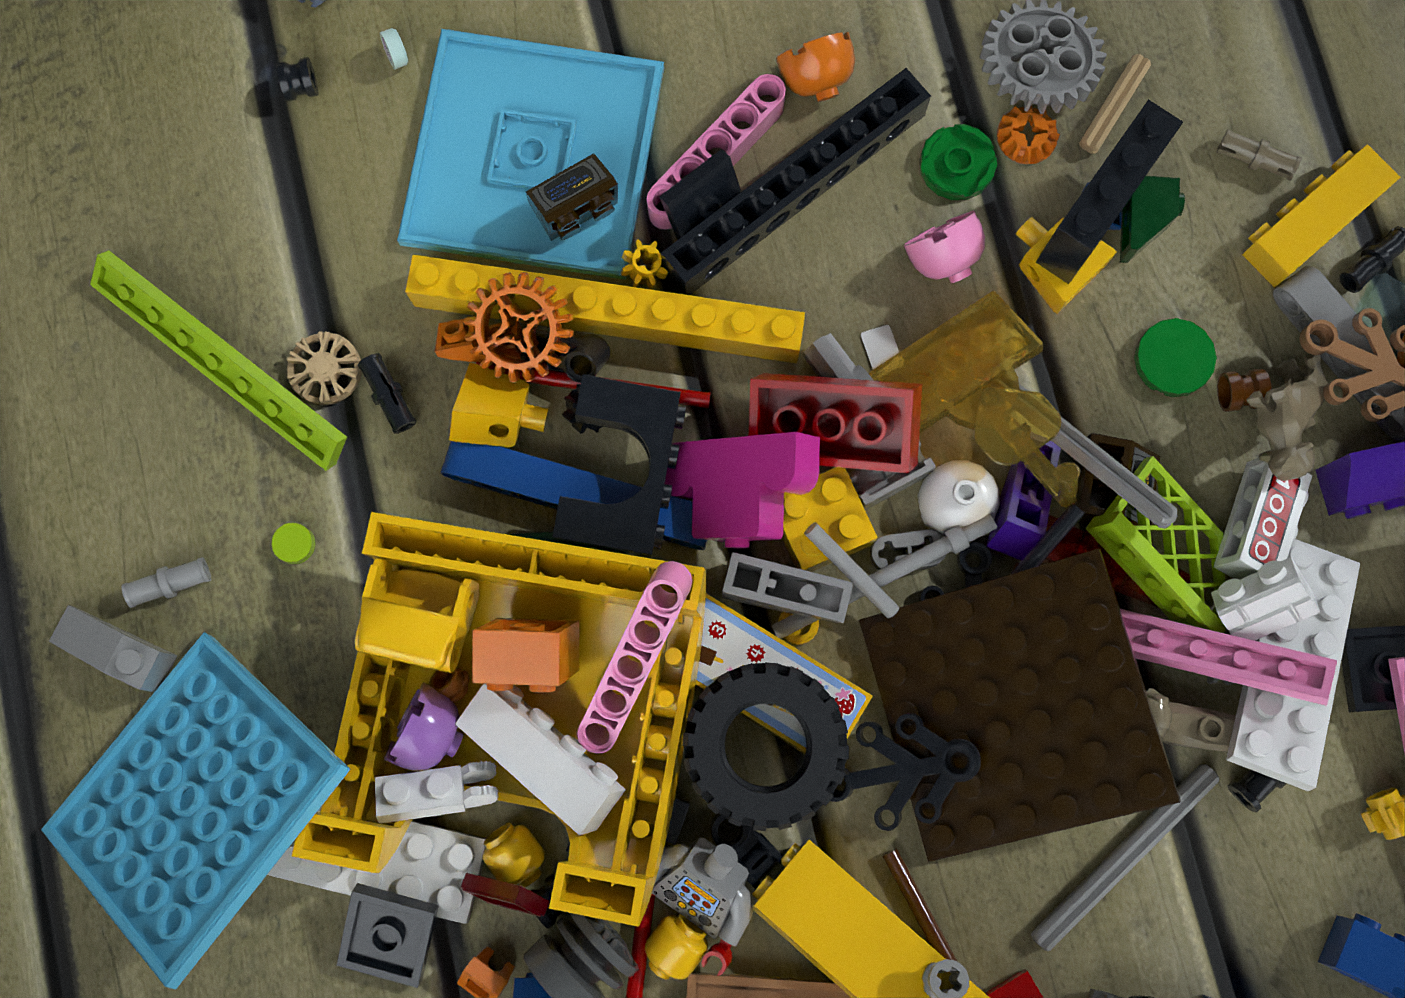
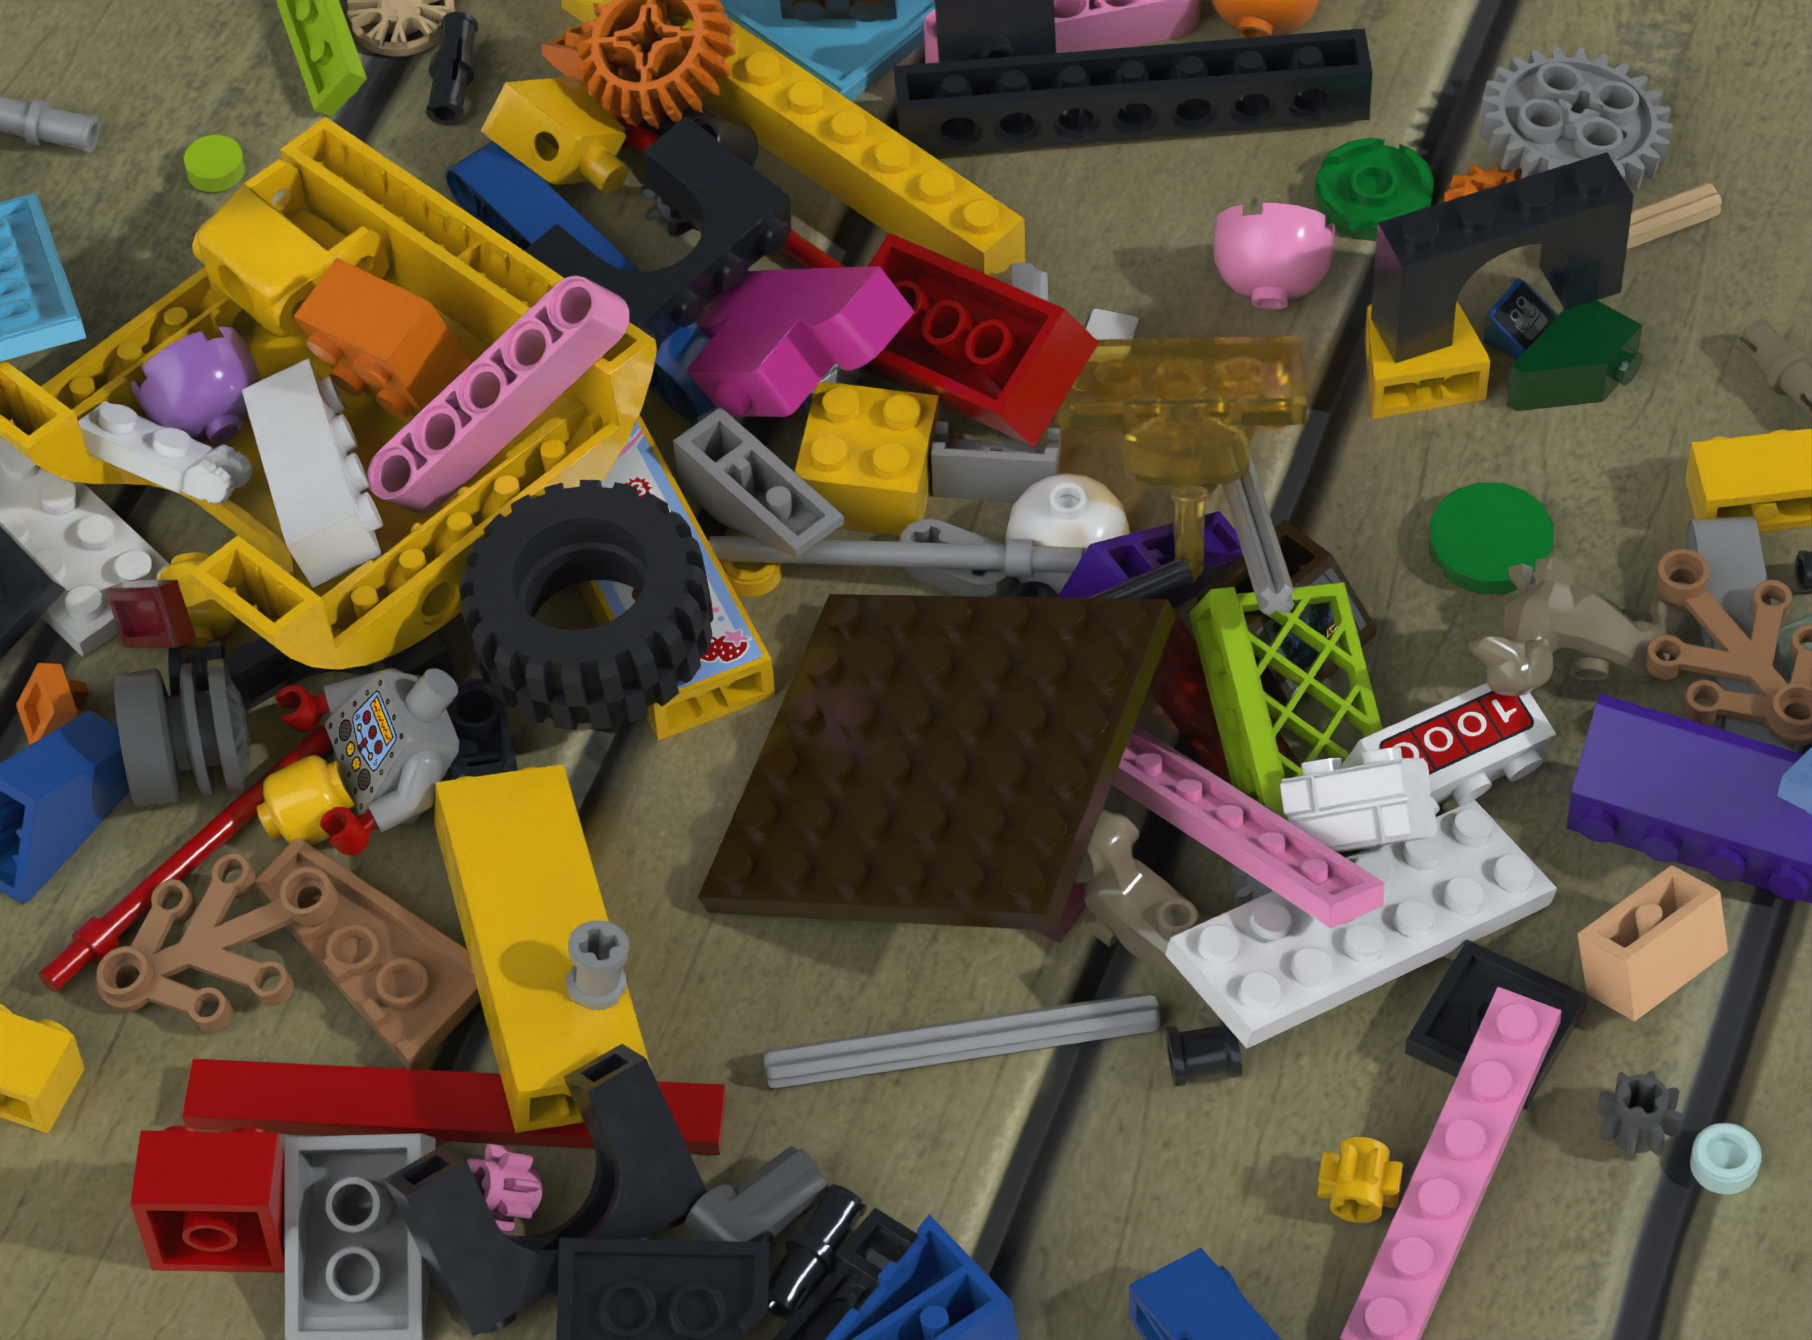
camera: 35 degrees right, 25 degrees down
(451, 685) = (273, 357): dark orange plate -> none
(639, 273) = (870, 85): yellow gear -> none
(851, 570) = (853, 505): light grey bar -> none
(911, 769) = (809, 770): black plant -> none
(917, 904) = (648, 938): reddish brown bar -> none

